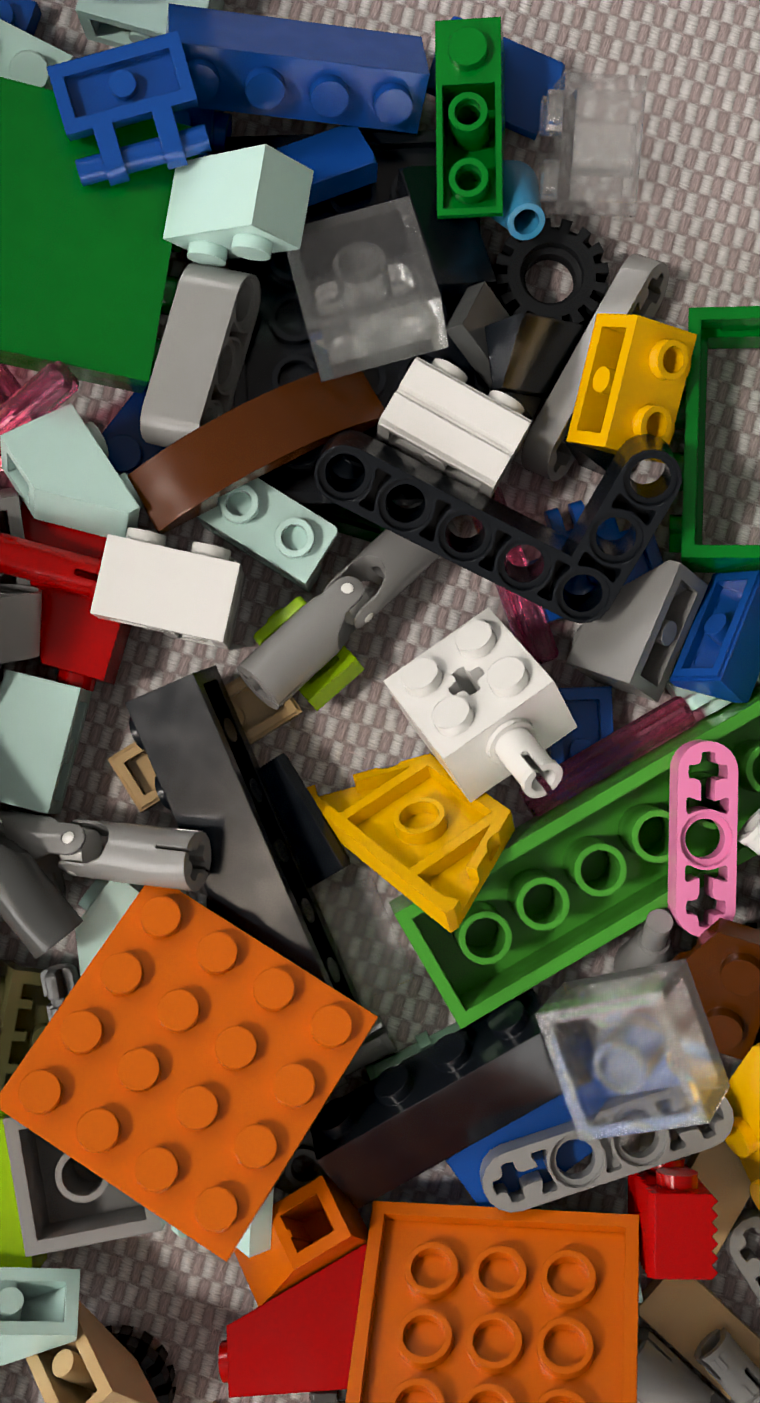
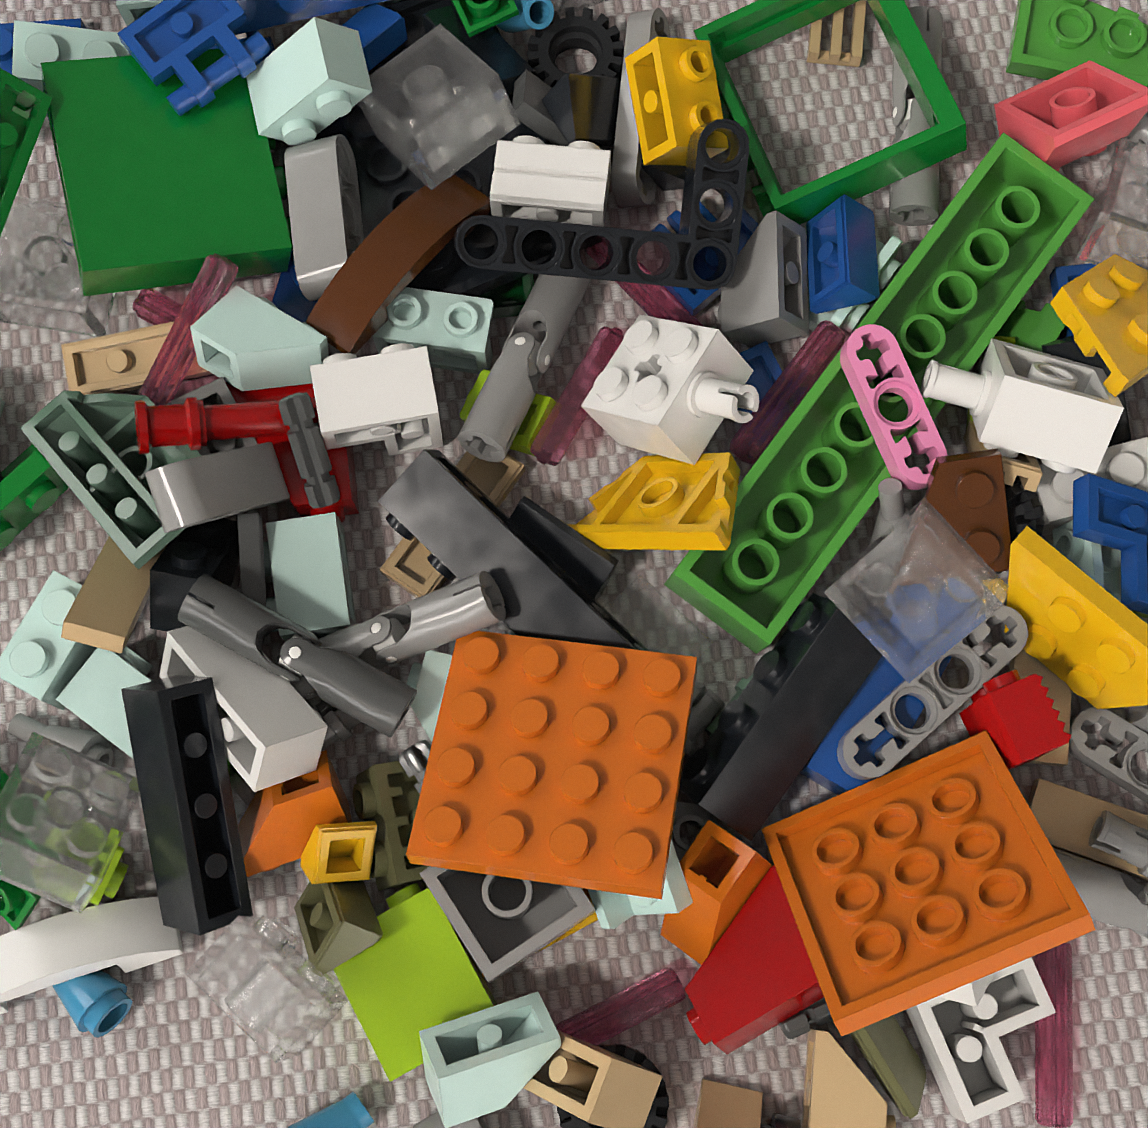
camera: 20 degrees left, 10 degrees down
(73, 619) = (309, 450): none -> dark grey axle
(160, 1307) = (625, 1008): none -> clear pink axle
(365, 682) = (567, 414): none -> clear pink axle

